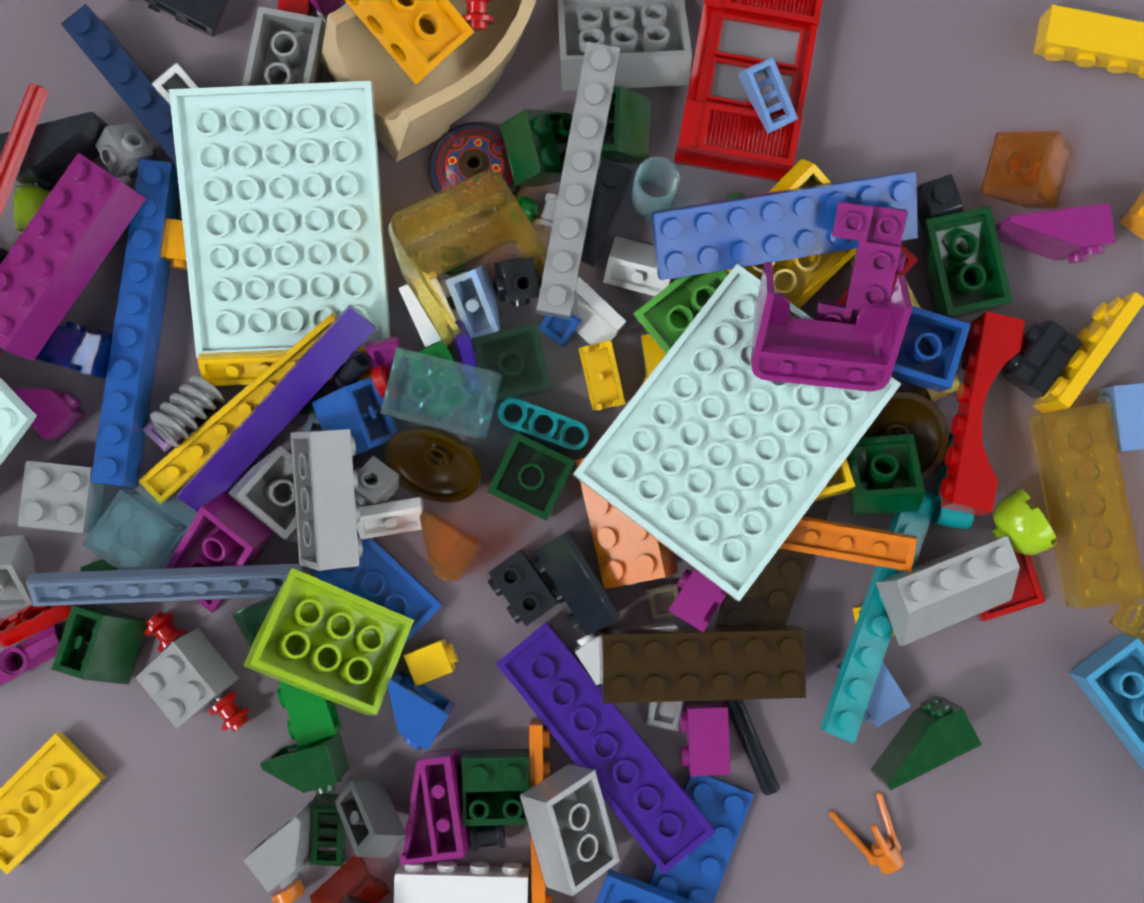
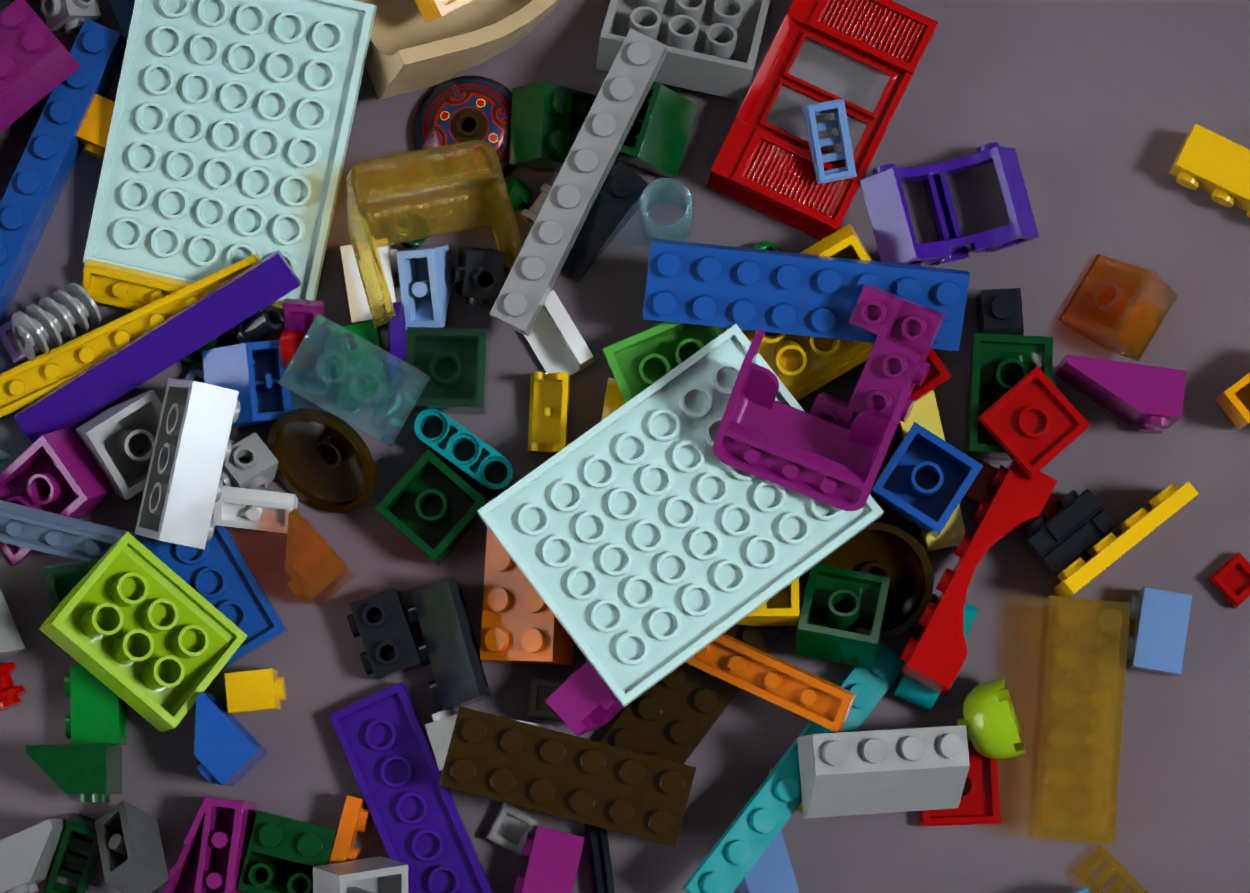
camera: 15 degrees right, 5 degrees down
(560, 329) = (516, 345): blue tile -> none
(633, 267) = (619, 295): white panel -> none
(839, 149) = (893, 223): none -> dark purple window
(995, 278) = (1033, 422): none -> red tile

